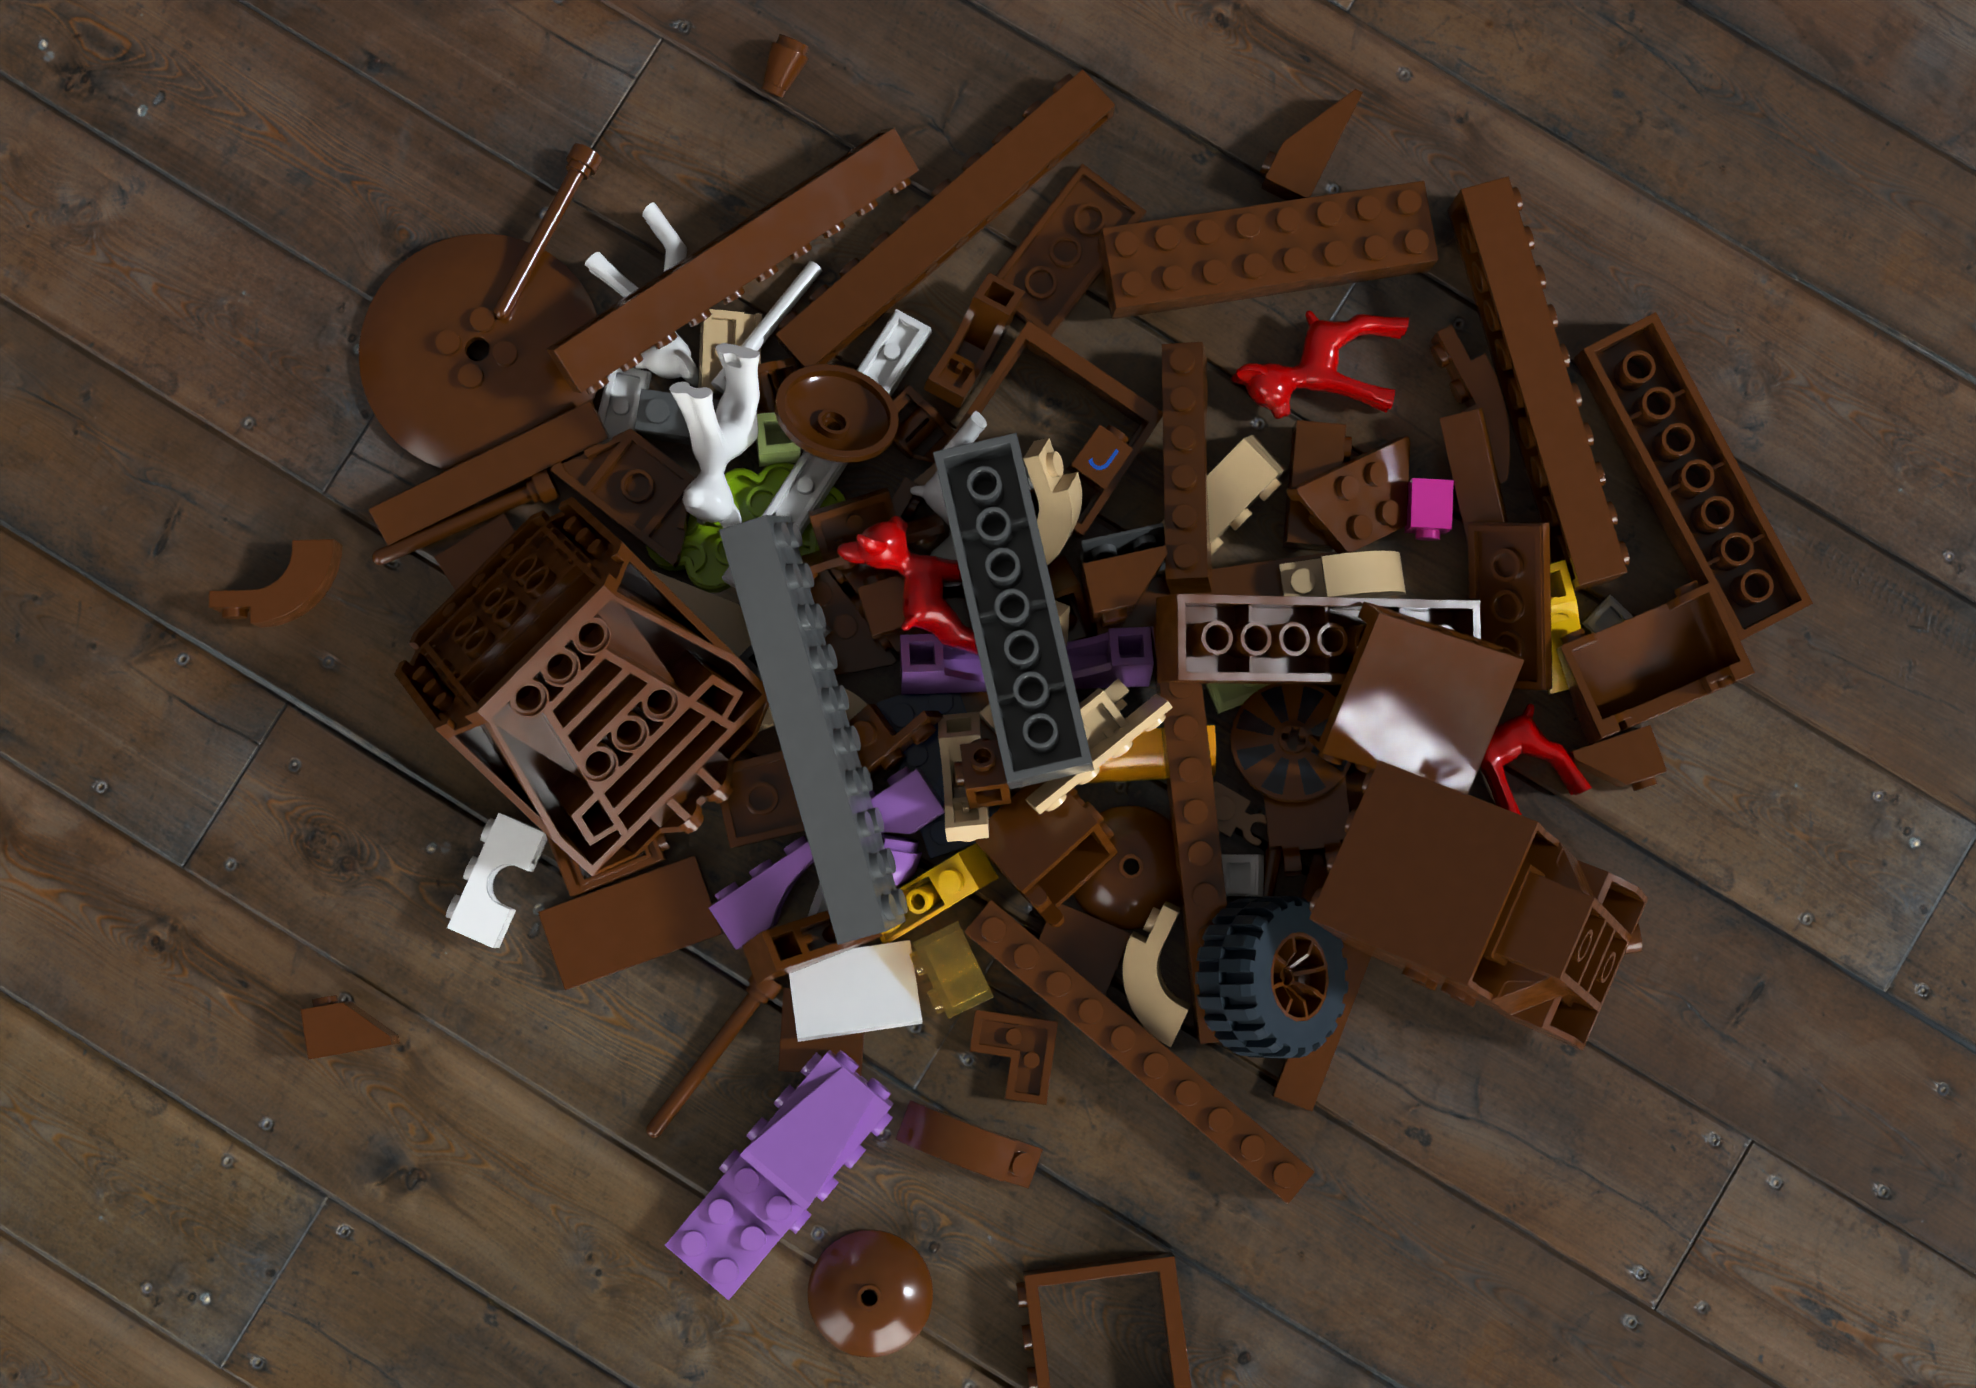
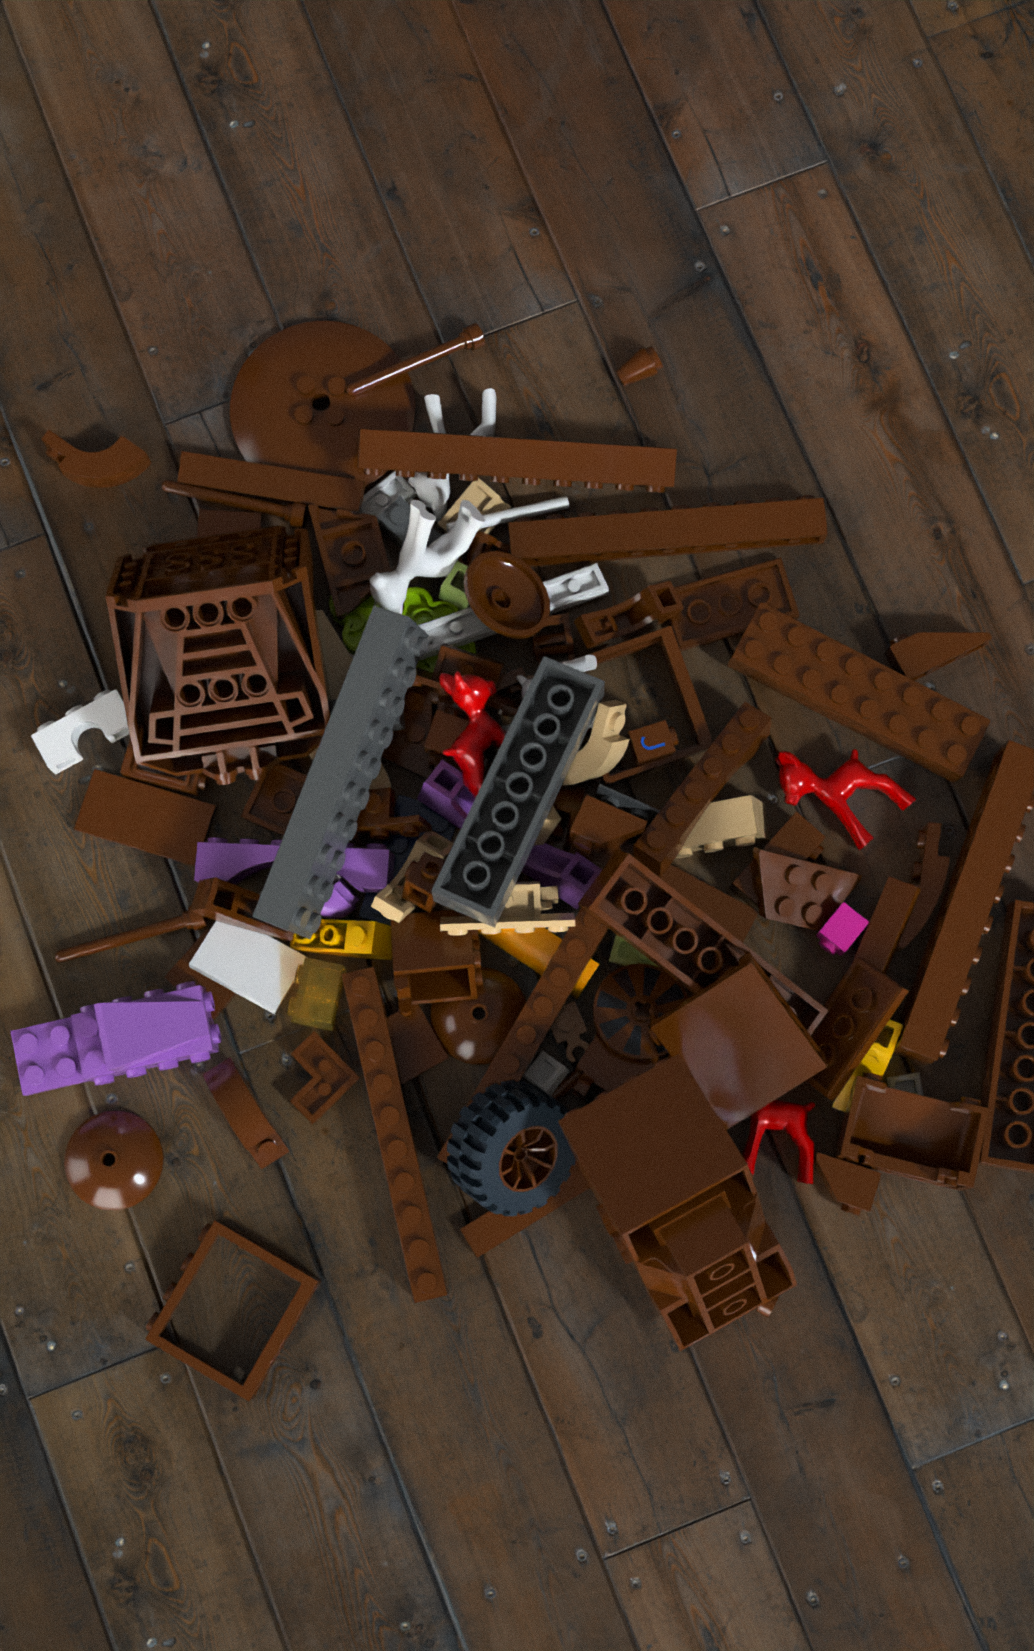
camera: 45 degrees right, 5 degrees down
(1144, 986) = (432, 1093): tan arch -> none
(1345, 576) = (756, 932): tan arch -> none

